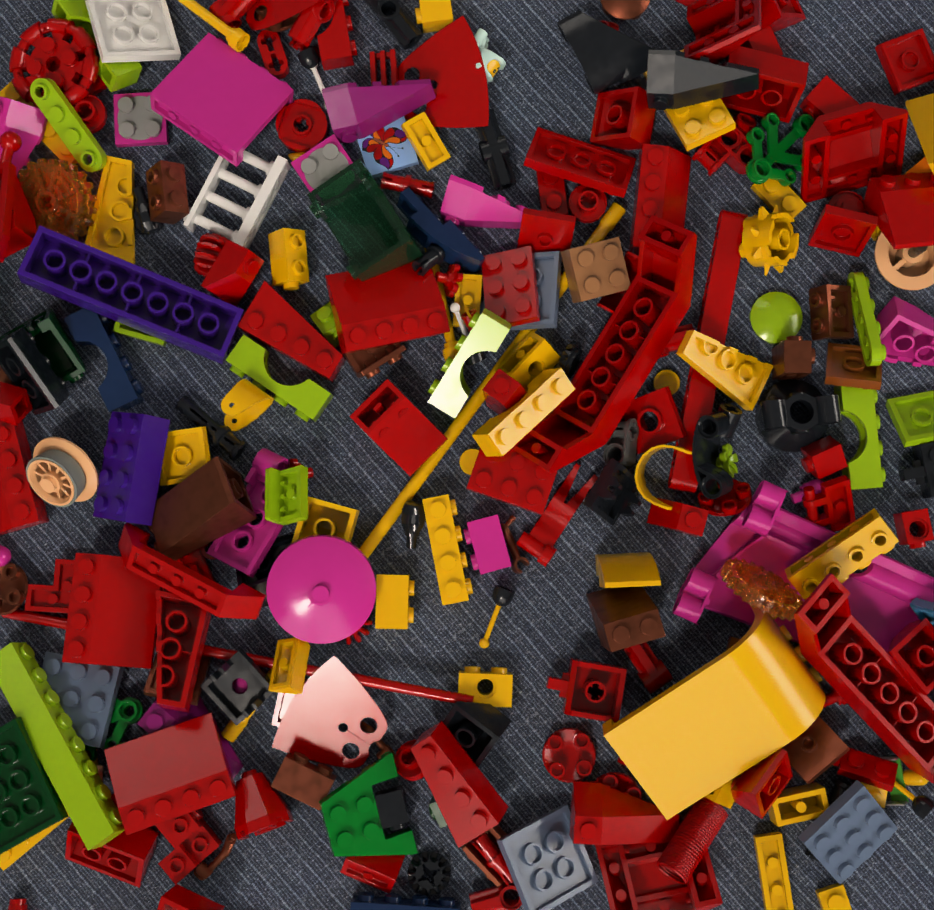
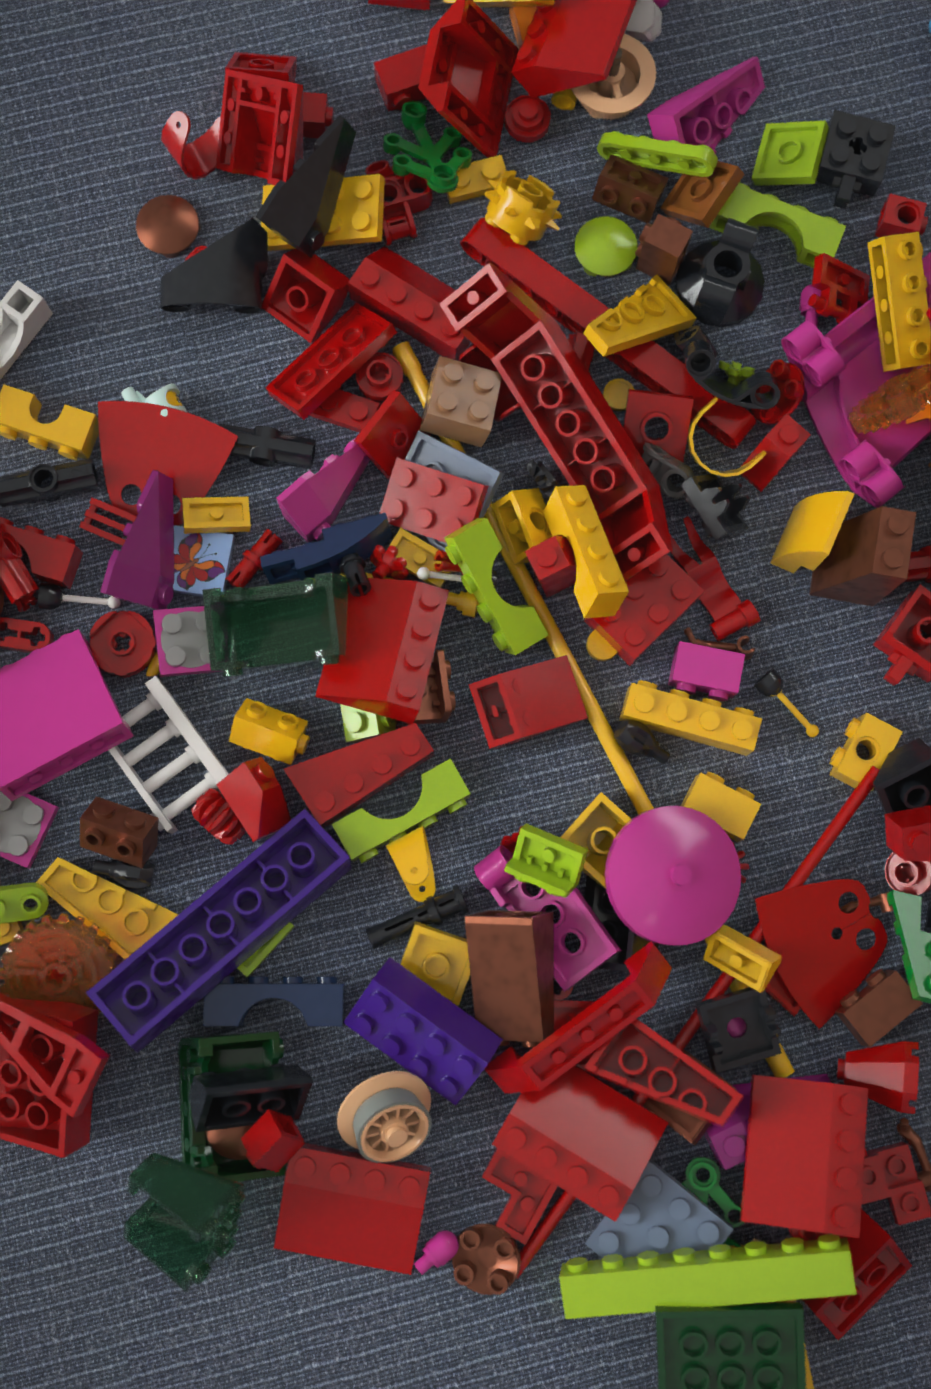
camera: 70 degrees left, 5 degrees down
(780, 84) = (366, 108): red brick -> none
(823, 457) = (783, 271): red brick -> none
(842, 230) = (550, 129): red plate -> none

